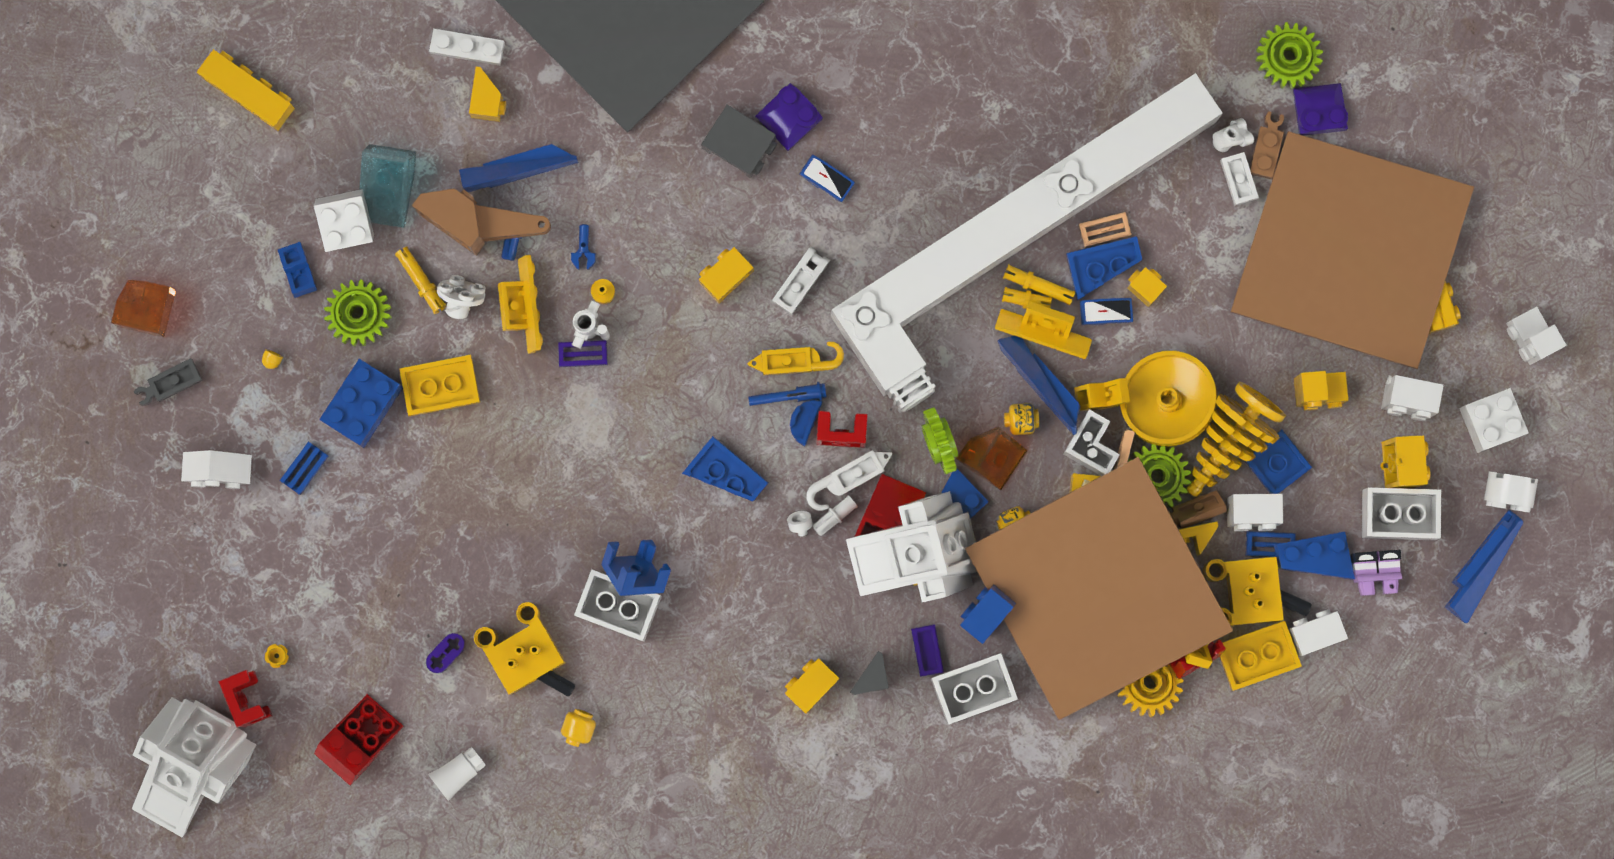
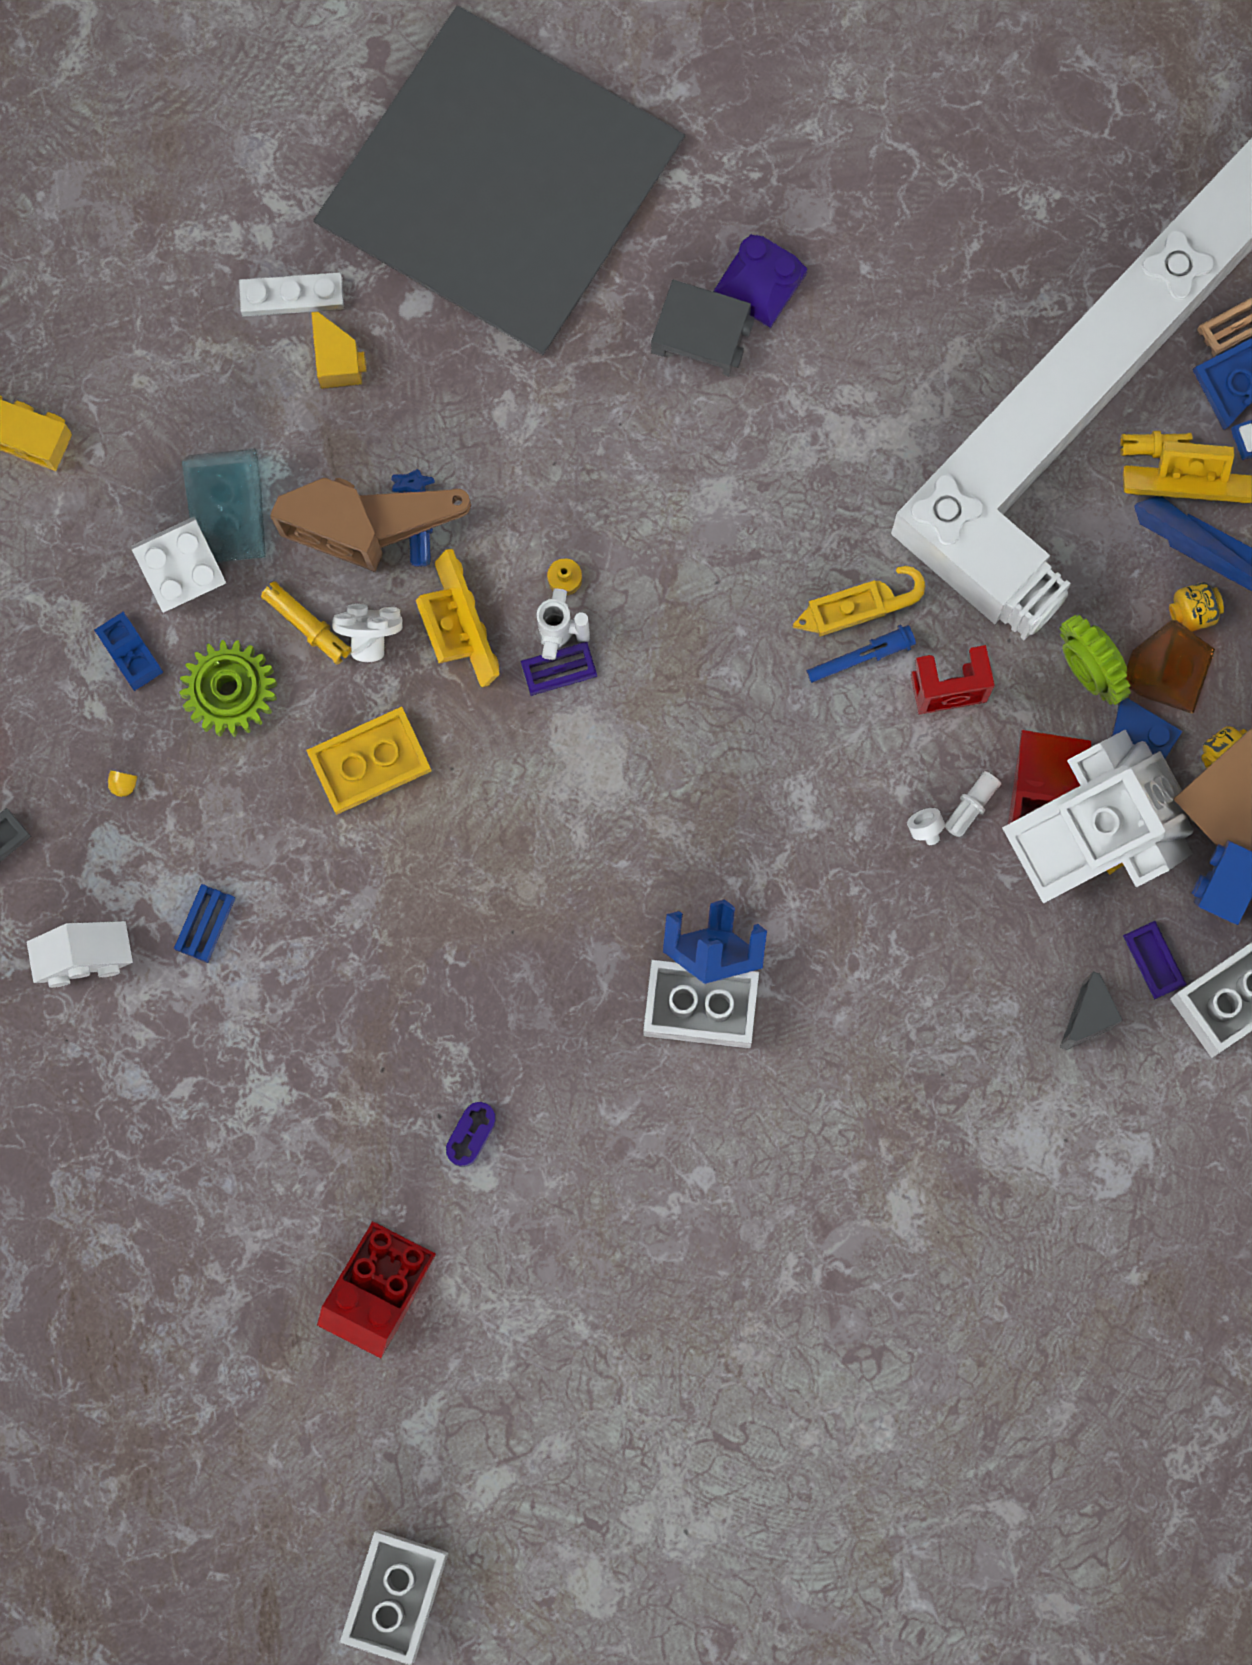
camera: 10 degrees left, 5 degrees down
(189, 757) = (139, 1374): white piece -> none
(238, 702) = (189, 1276): red panel -> none
(270, 655) = (220, 1193): yellow plate -> none
(361, 403) = (264, 811): blue brick -> none
(457, 772) = (531, 1301): white plant -> none
(515, 202) = (411, 482): none -> blue plate
(516, 167) = (402, 437): blue wedge -> none
(526, 656) = (587, 1108): yellow piece -> none
(578, 727) = (688, 1192): yellow head -> none
(583, 248) = (522, 526): blue bar -> none
(725, 274) = (730, 511): yellow brick -> none
(725, 470) = (802, 779): blue wing -> none
(800, 281) = (836, 496): white plate -> none
(803, 420) = (891, 684): blue tile -> none
(811, 685) = (1005, 1049): yellow brick -> none
(827, 178) = (835, 347): slope -> none
(849, 476) = (978, 745): white plate -> none
(1038, 284) = (1169, 420): yellow pin -> none

